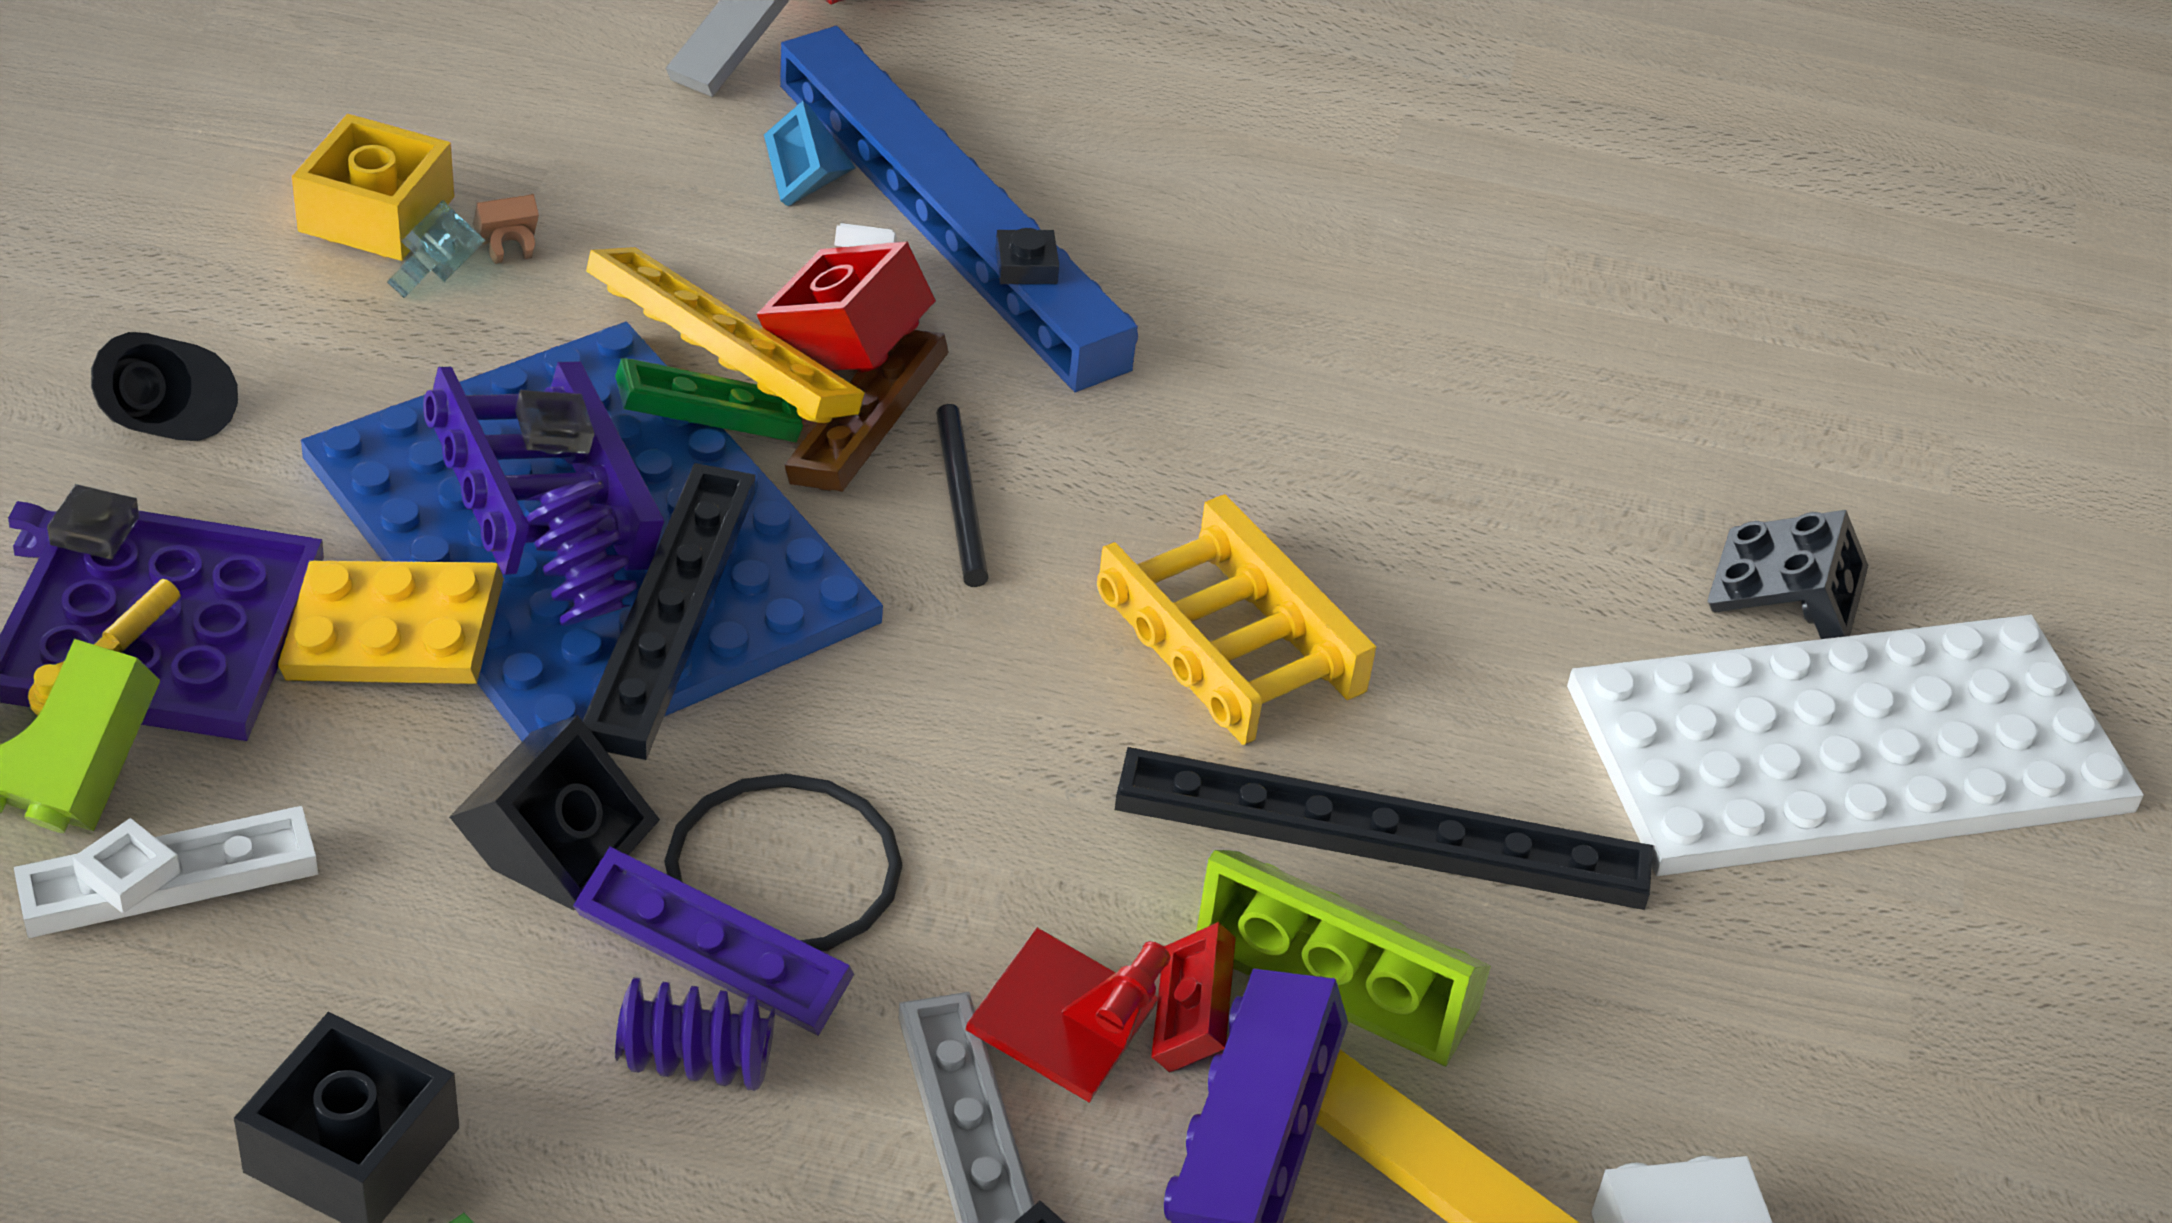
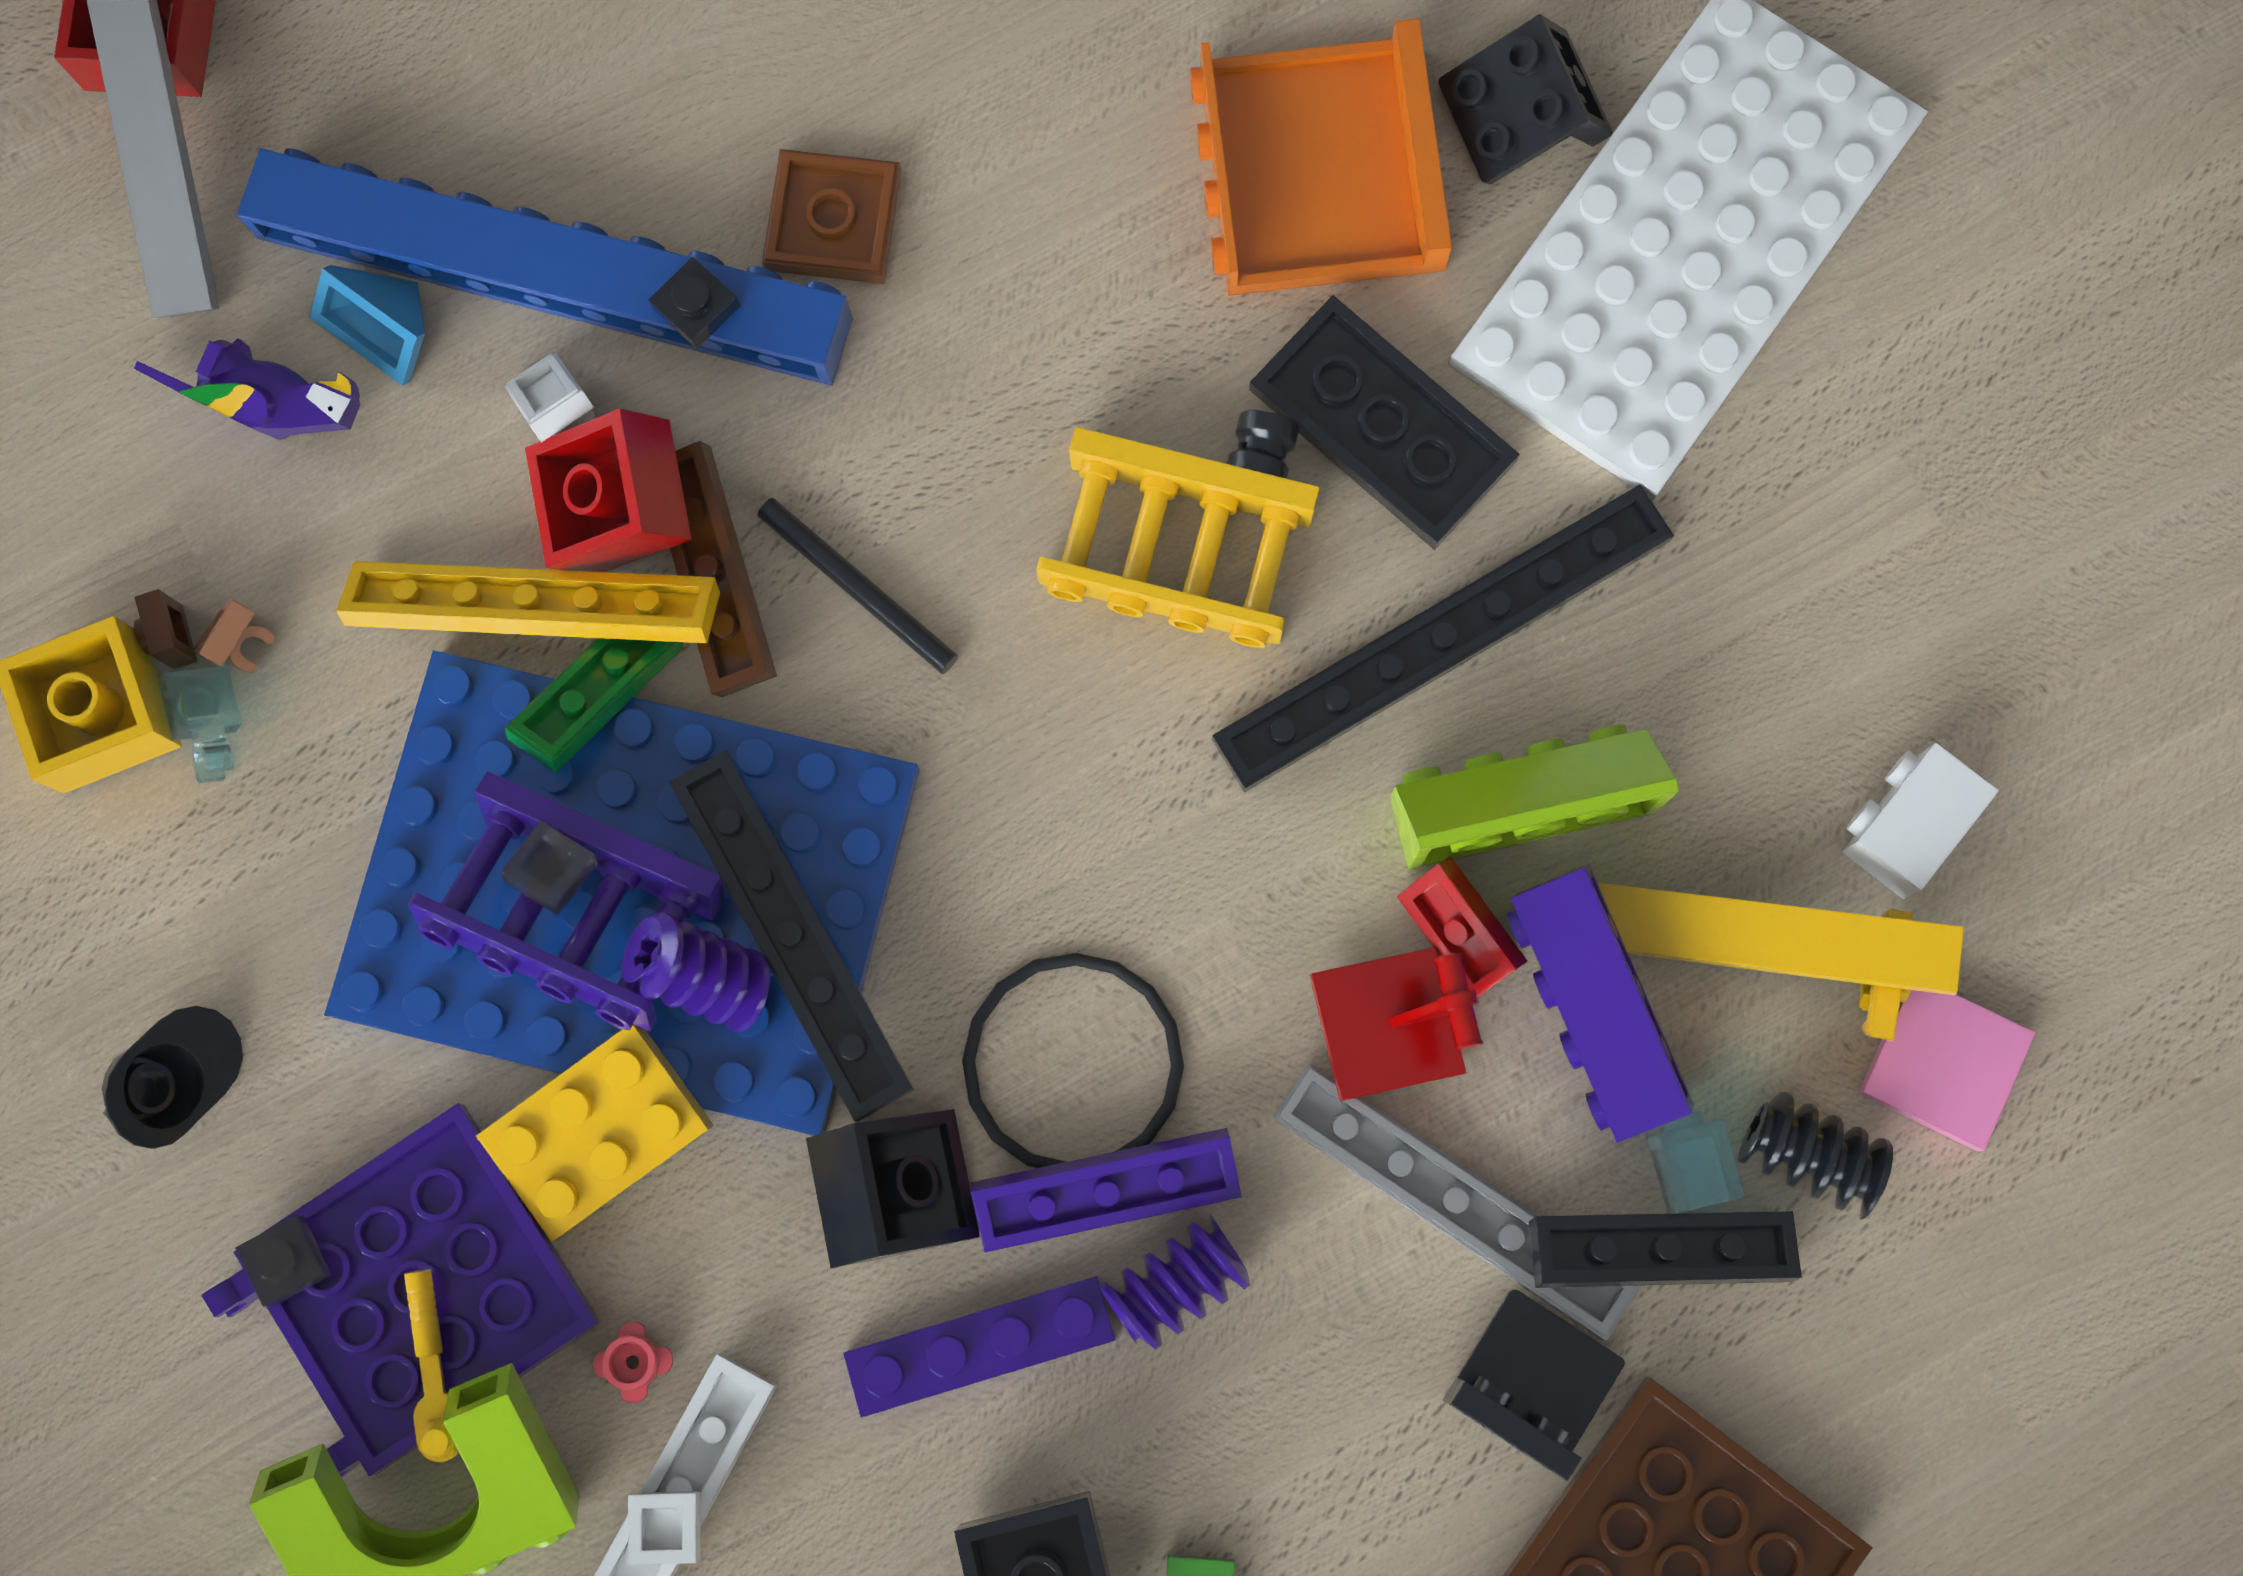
camera: 30 degrees left, 35 degrees up
(237, 775) = (614, 1367): none -> coral plate
(471, 185) = (164, 629): none -> reddish brown plate
(492, 970) = (979, 1346): none -> dark purple plate
(686, 138) = (265, 392): none -> dark purple animal
(1184, 310) = (831, 216): none -> dark orange tile
(1370, 608) = (1264, 442): none -> black wheel
(1475, 671) = (1384, 422): none -> black plate
(1580, 509) = (1322, 164): none -> orange panel

